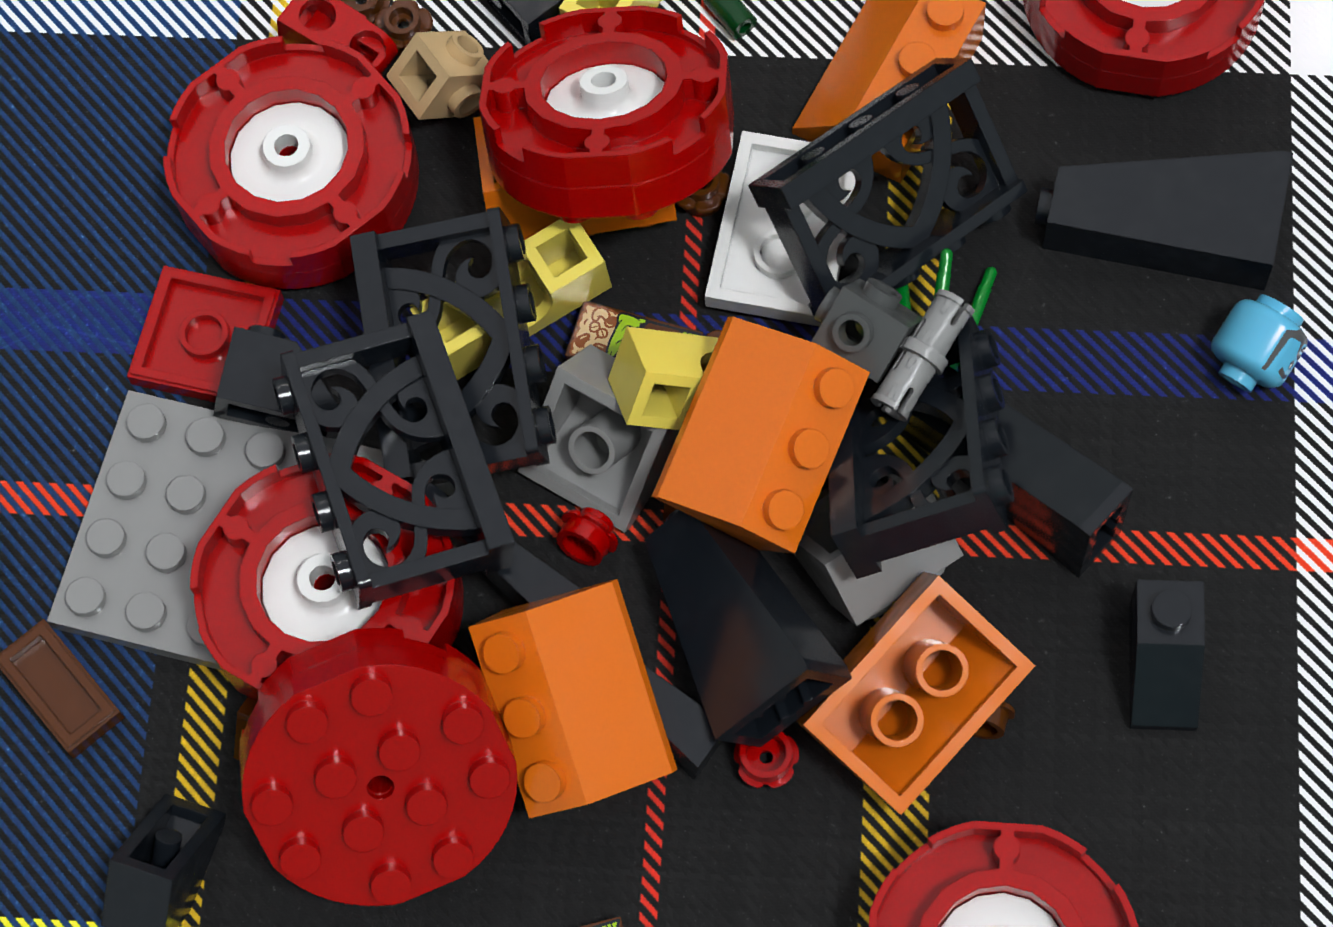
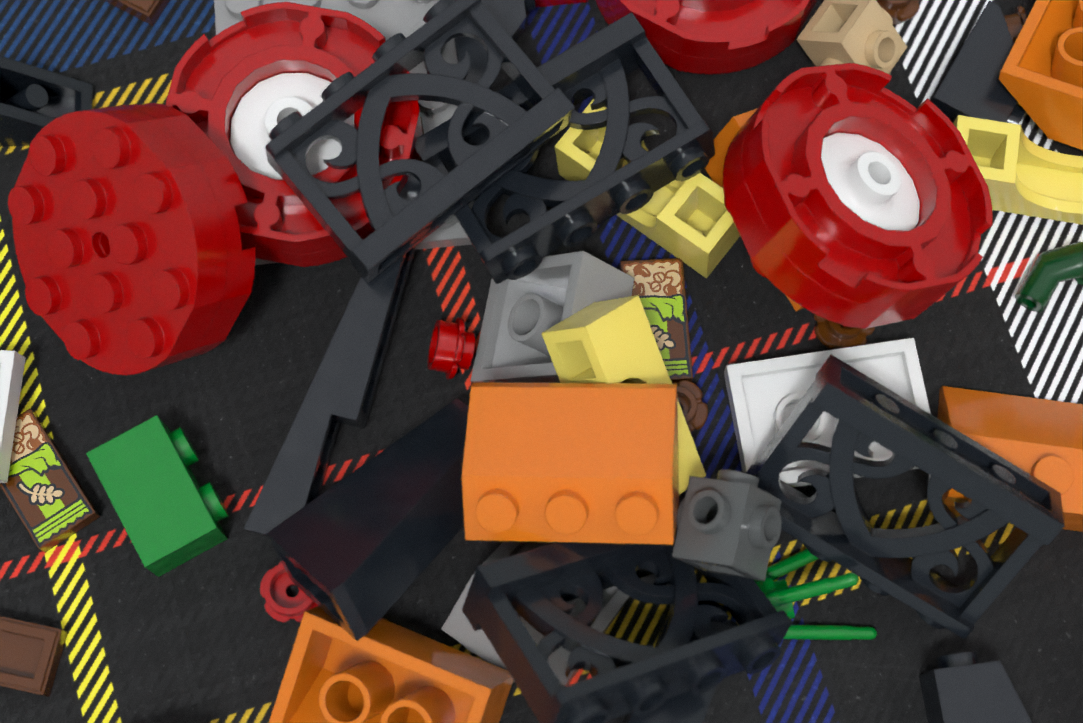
camera: 60 degrees right, 5 degrees up
(573, 698) = (262, 386): orange slope -> none
(628, 847) = (158, 494): none -> green brick
(922, 355) = (717, 591): light grey pin -> none

